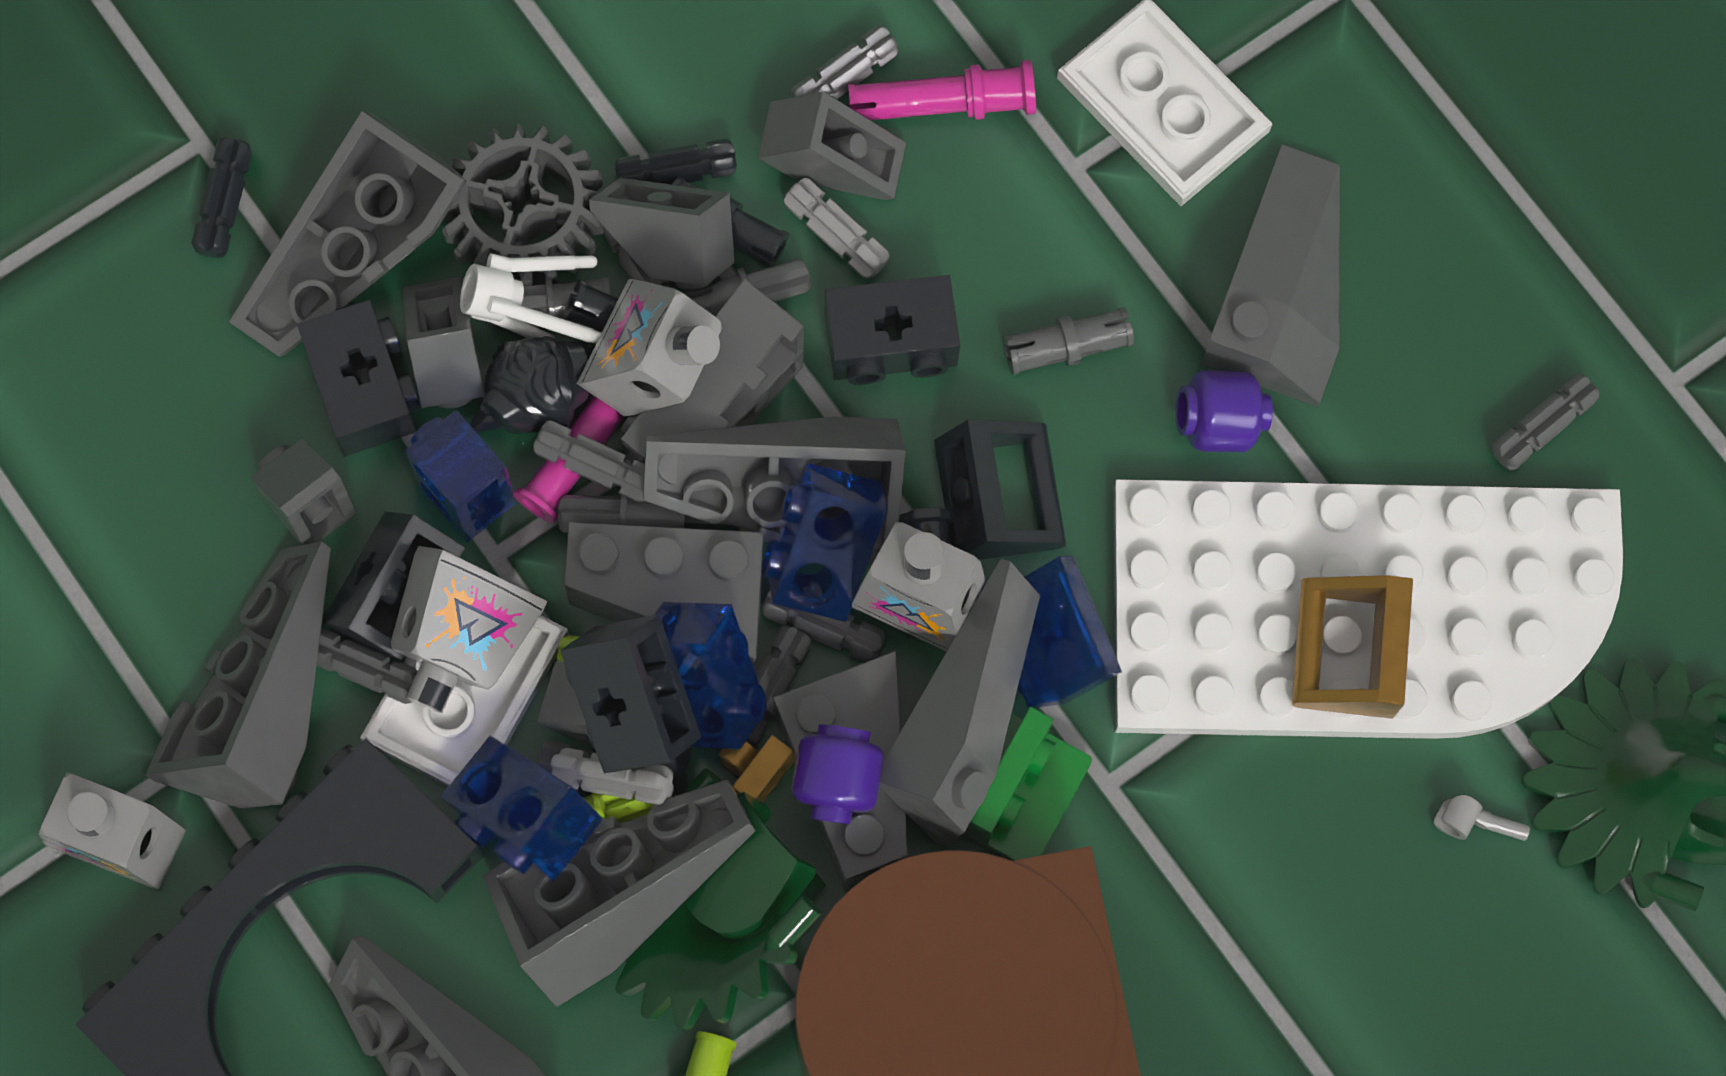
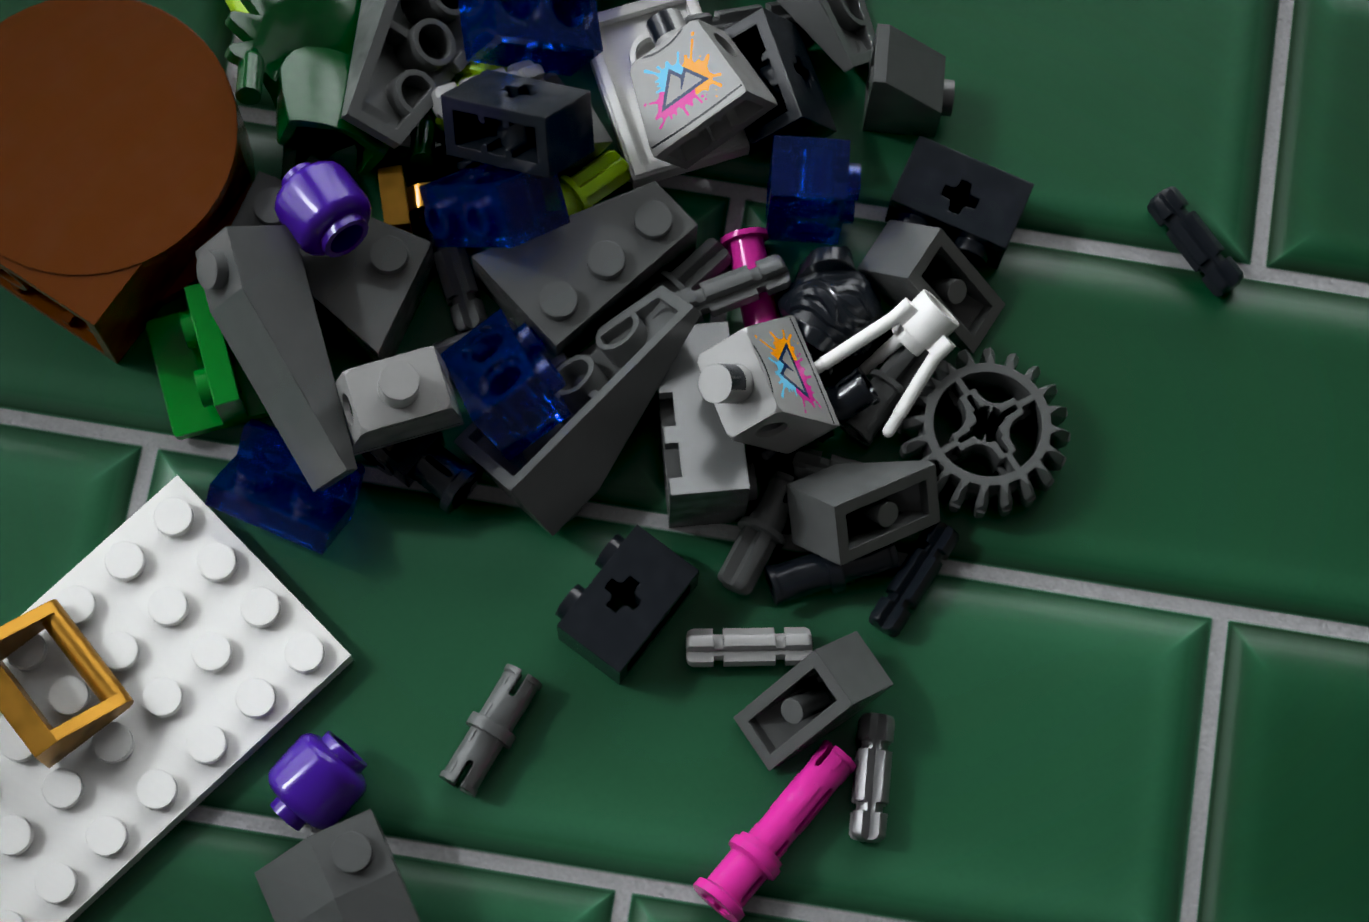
camera: 135 degrees right, 0 degrees up
(358, 222) = (1077, 302): dark grey wedge -> none
(974, 492) = (449, 543): black tile -> none

